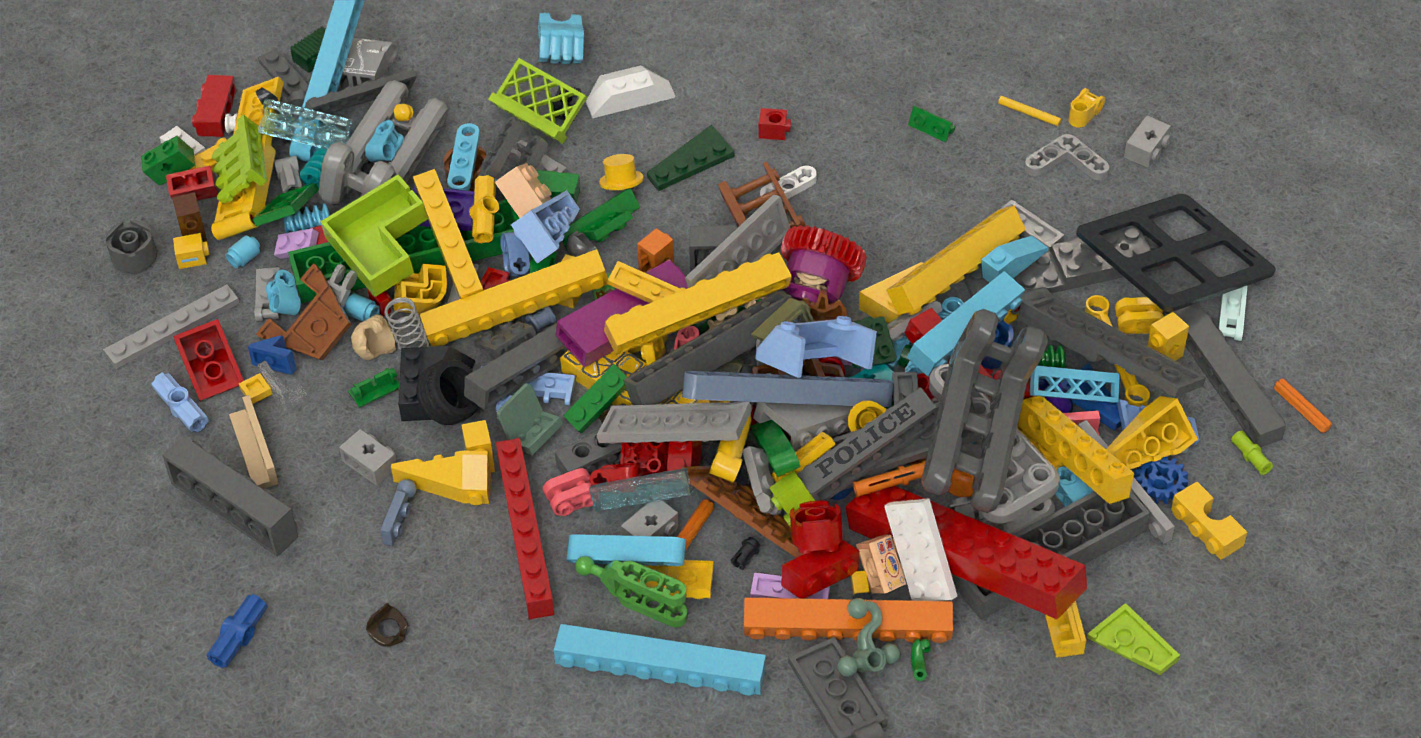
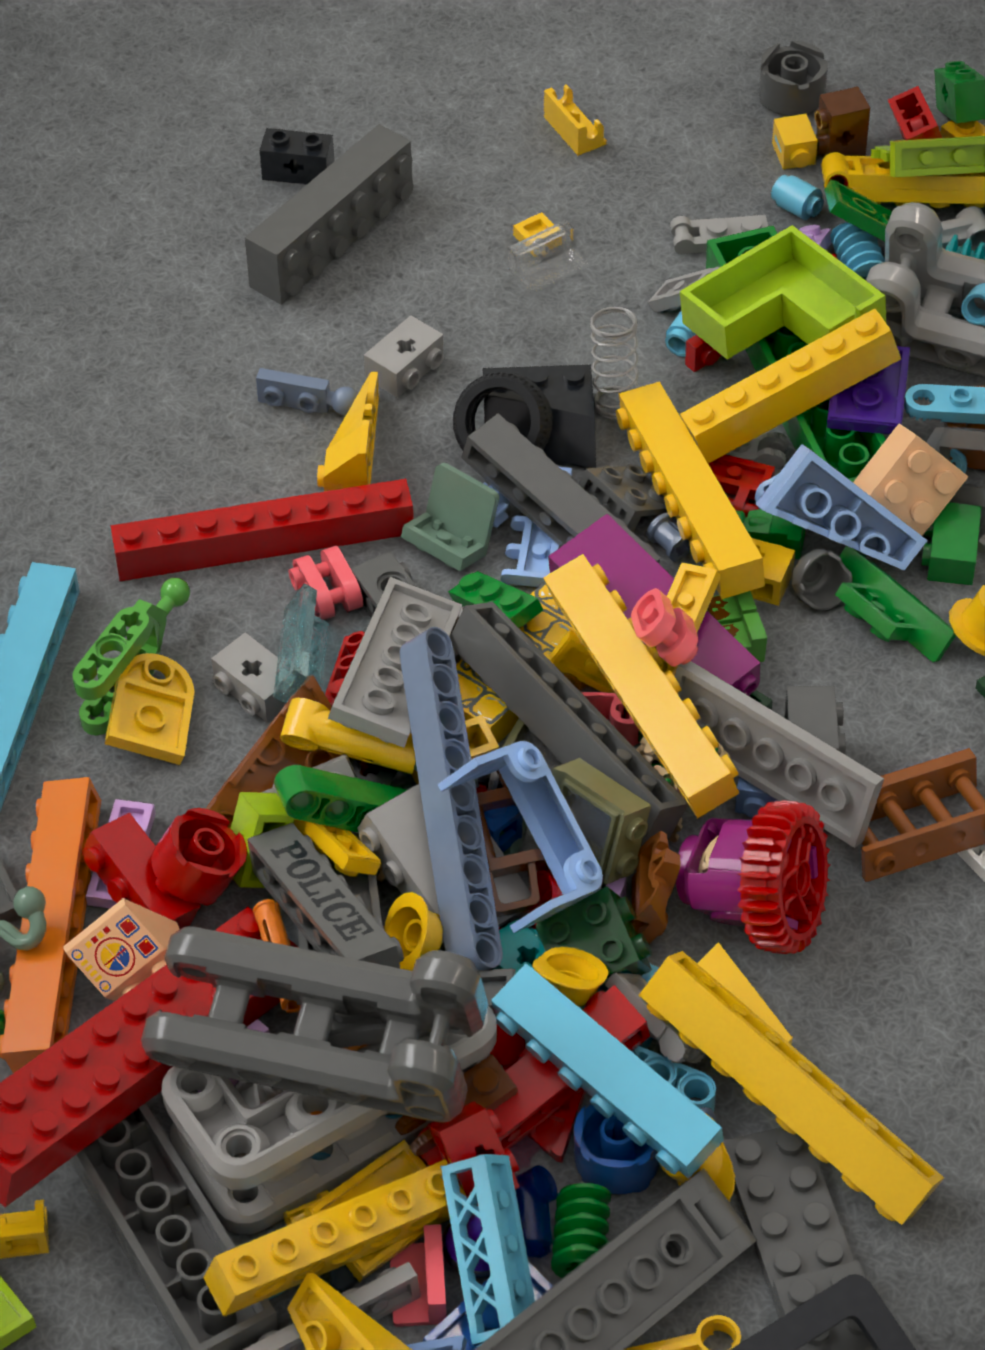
camera: 90 degrees right, 0 degrees up
(145, 371) = (572, 123): none -> yellow hinge
(157, 525) = (295, 155): none -> black brick
(171, 325) = (659, 144): light grey plate -> none
(179, 402) = (510, 159): light blue piece -> none
(208, 360) = (587, 179): red slope -> none
(237, 631) = (121, 251): blue piece -> none
(253, 446) = (435, 242): tan fence -> none
(274, 353) = (595, 241): blue slope -> none
(283, 294) = (690, 236): medium azure piece -> none
(318, 325) = (650, 278): dark orange wing -> none
(373, 338) = (645, 349): tan hair -> none
(375, 388) = (531, 349): green hinge -> none
(386, 612) = (114, 381): dark brown piece -> none
(424, 289) = (705, 375): yellow brick -> none
(477, 439) = (400, 455): yellow brick -> none
(484, 209) = (827, 425): yellow piece -> none
(614, 472) = (332, 622): red piece -> none
(639, 549) = (194, 638): medium azure beam -> none
(654, 250) = (793, 659): orange brick -> none
(671, 278) = (665, 628): none -> coral brick
(696, 521) = (232, 723): orange axle -> none
(749, 547) = (192, 794): black pin -> none
(900, 340) = (572, 972): none -> yellow piece
(920, 550) = (124, 975): white plate -> none
(1012, 257) = (804, 1182): medium azure slope -> none
(1037, 227) = (920, 1240): light grey plate -> none

